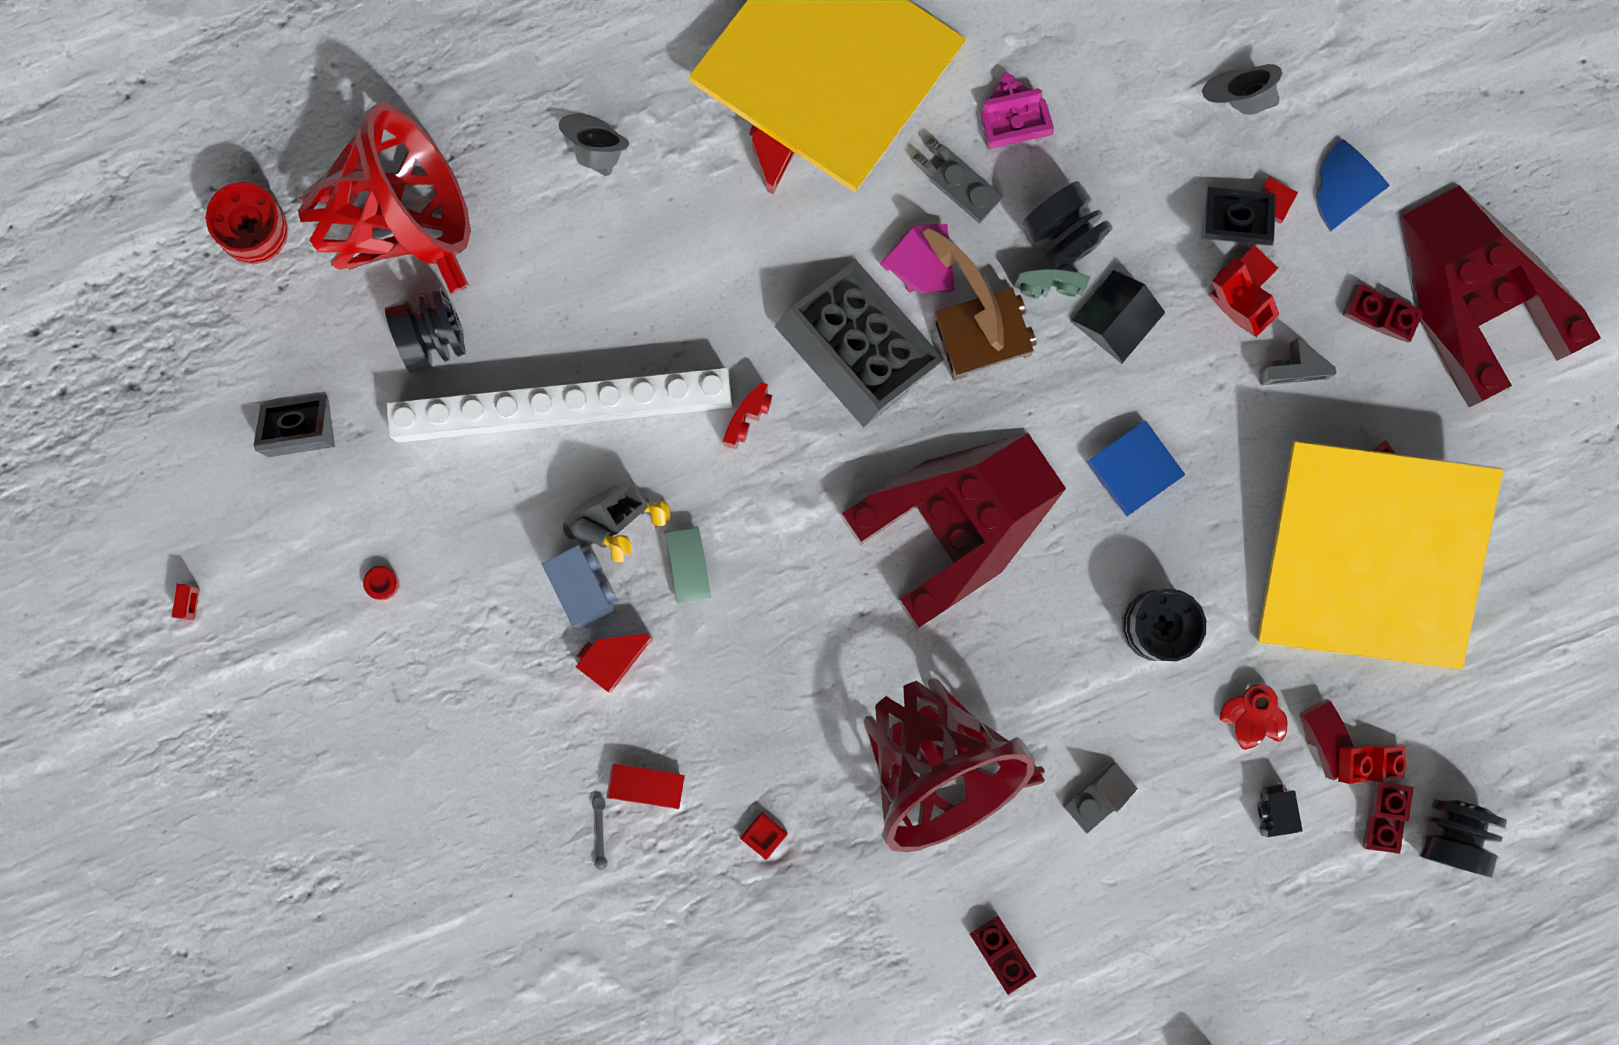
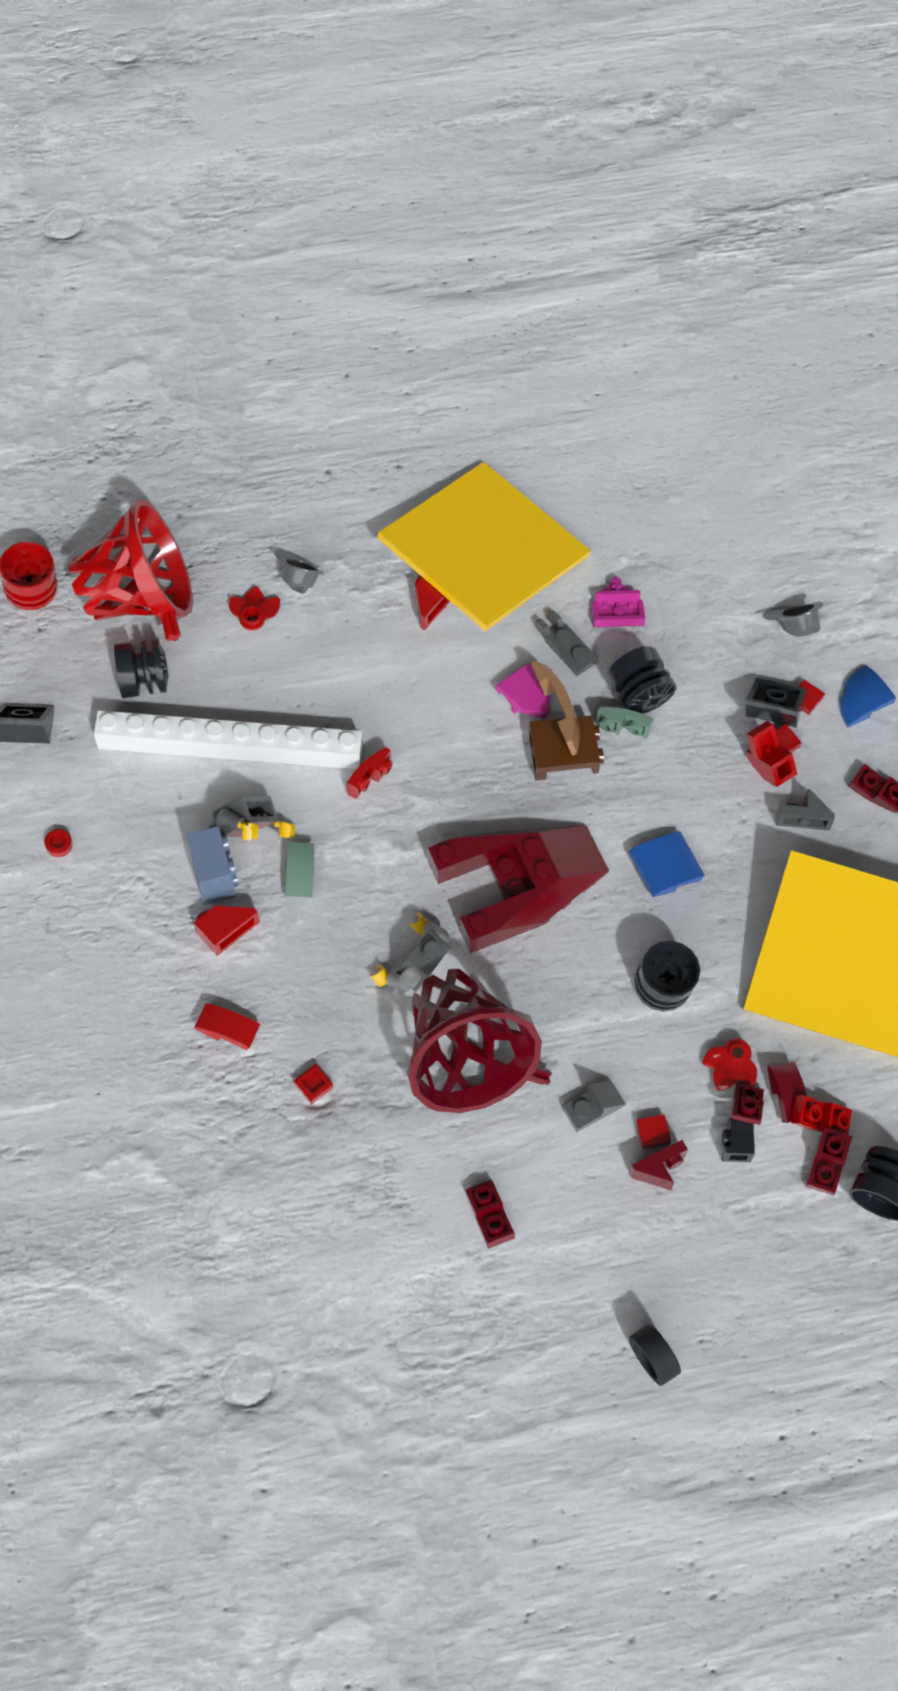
camera: 10 degrees right, 20 degrees down
(549, 203) = (254, 606): none -> red plate
(599, 804) = (186, 1037): dark grey hinge -> none
(858, 342) = (466, 737): dark grey slope -> none
(863, 657) = (420, 961): none -> torso
(1119, 315) = (673, 755): black slope -> none
(1176, 817) = (653, 1131): none -> red tile
(1184, 864) = (653, 1168): none -> dark red slope
(1283, 769) = (747, 1104): none -> dark red slope

